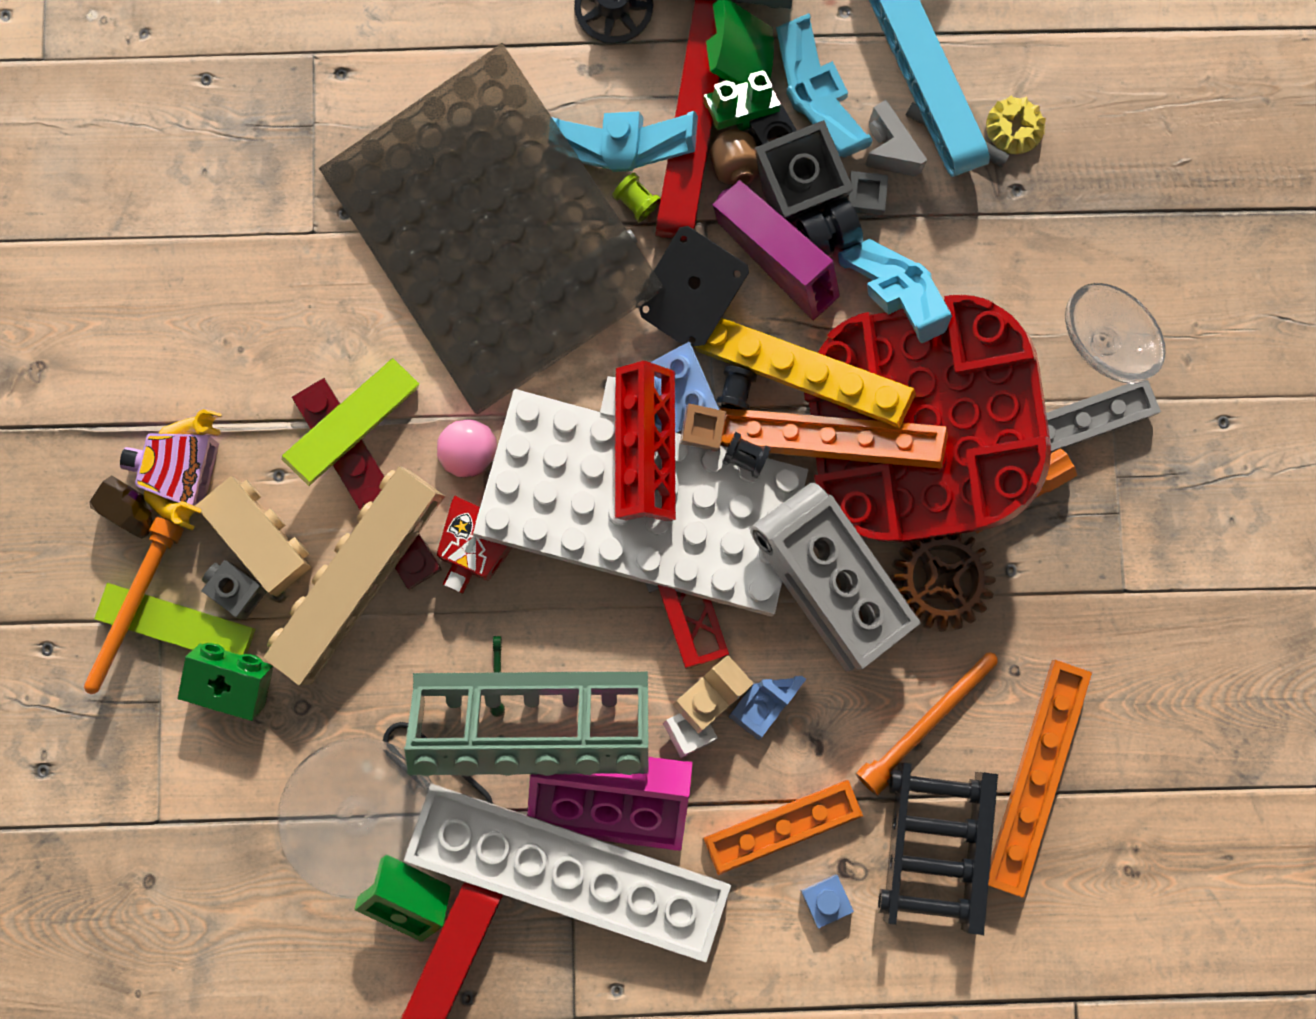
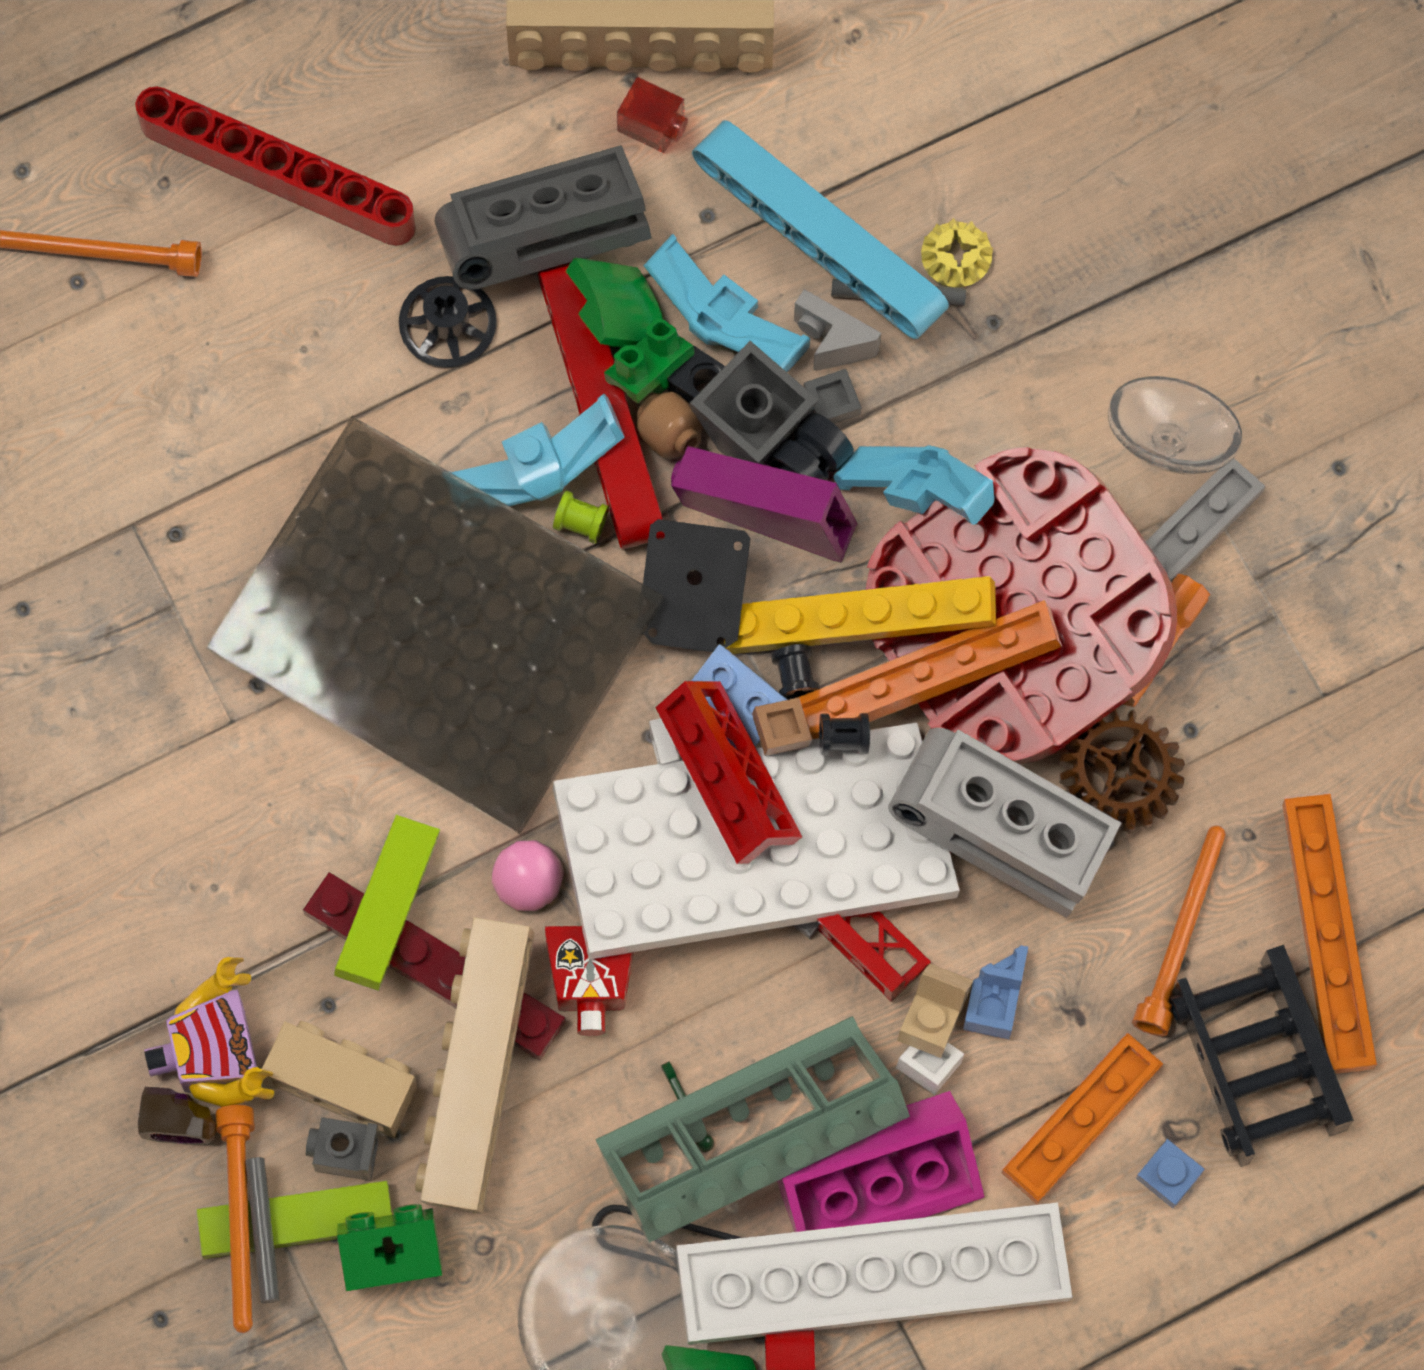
camera: 25 degrees left, 10 degrees down
(143, 622) = (262, 1230): none -> dark grey bar

